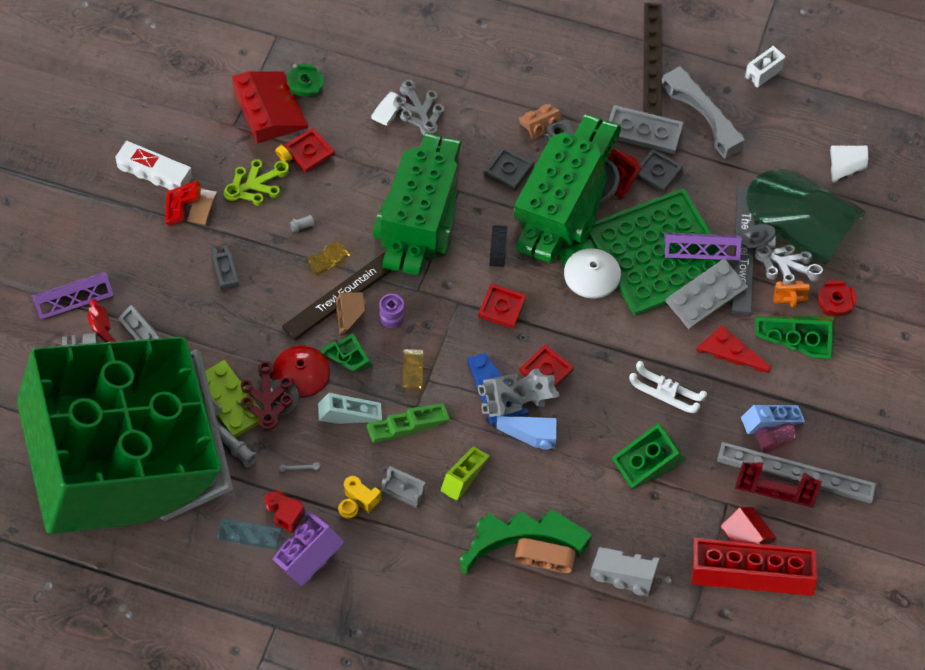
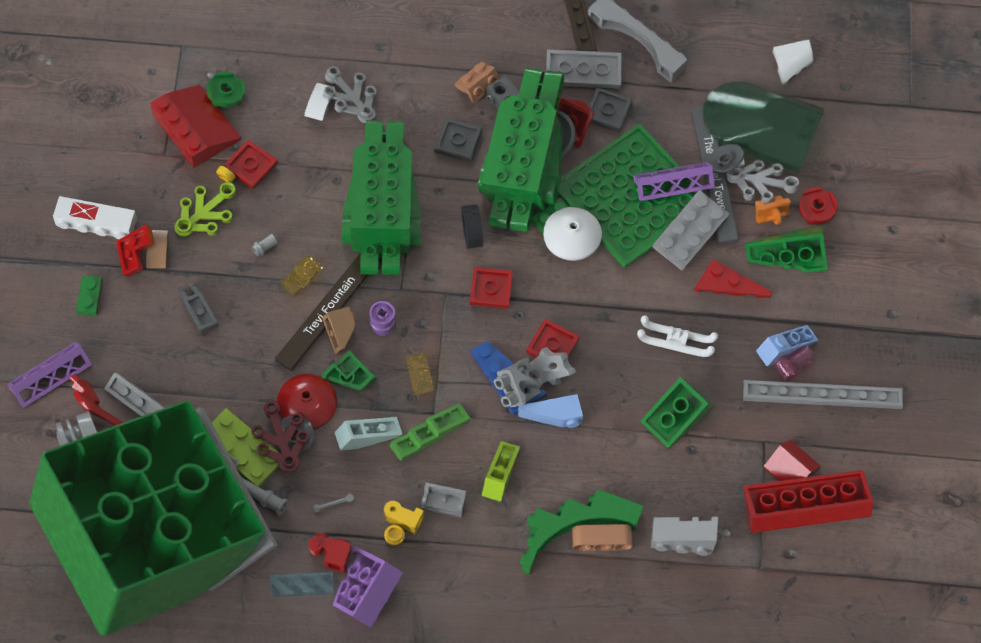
camera: 15 degrees left, 5 degrees up
(129, 234) = (89, 295): none -> green plate
(803, 494) = (783, 413): dark red wedge -> none

